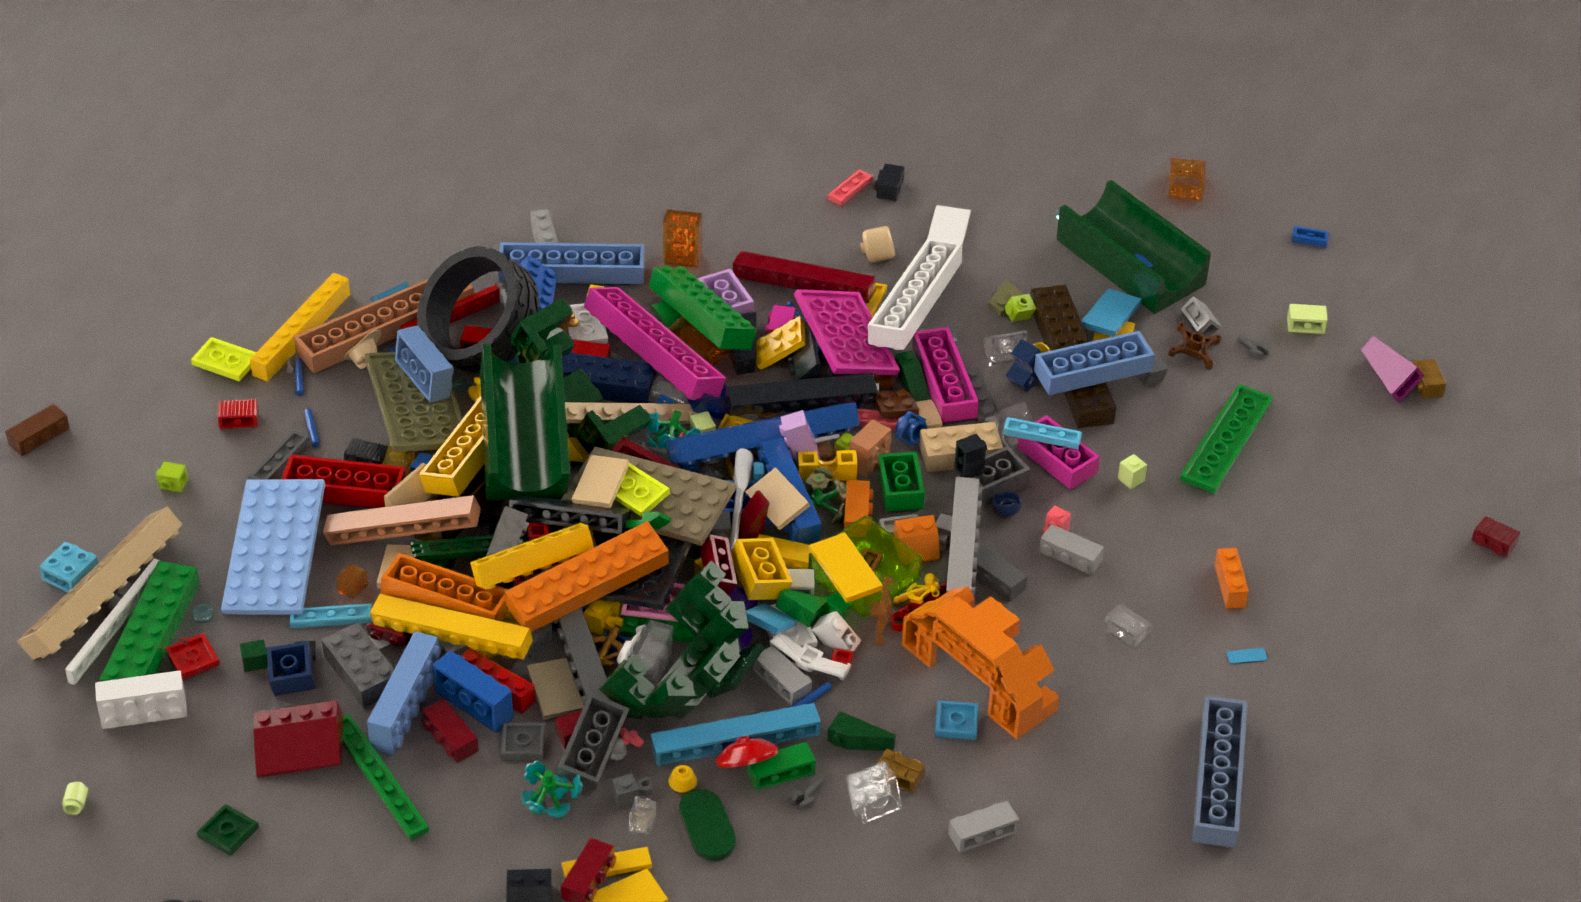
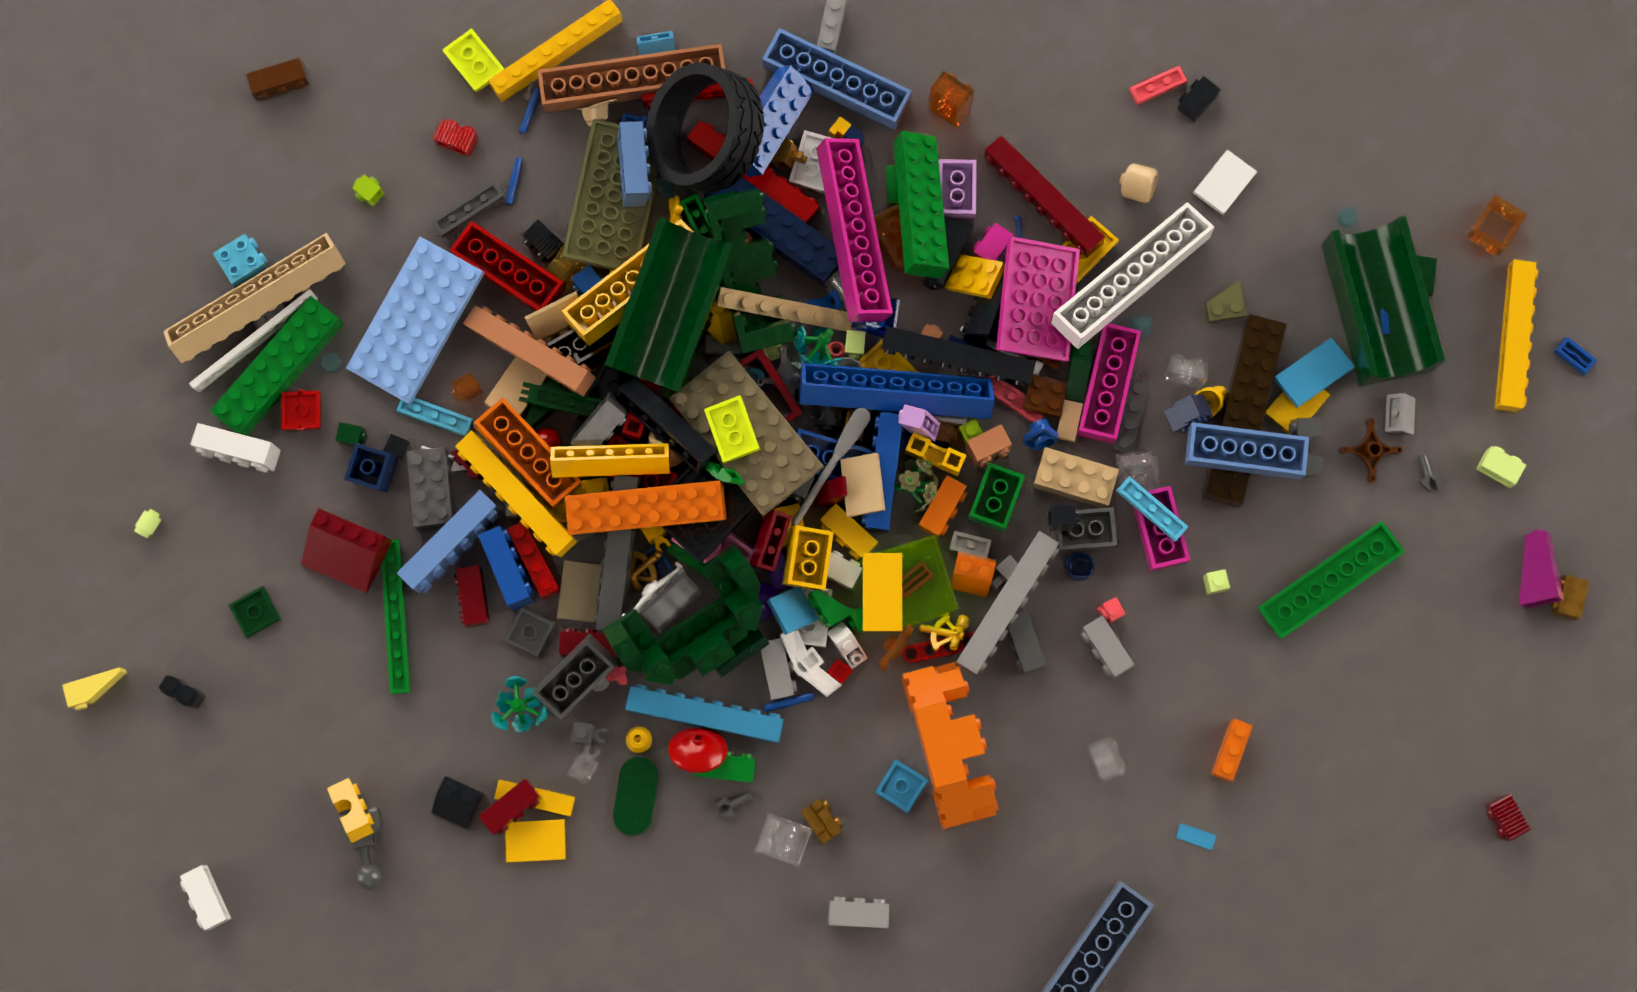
camera: 30 degrees right, 35 degrees up
(600, 481) = (705, 408): tan tile -> none
(758, 471) = (866, 438): dark azure tile -> none
(859, 735) = (804, 763): dark green slope -> none
(1020, 307) = (1228, 328): lime brick -> none
(1255, 238) = (1516, 336): none -> yellow brick

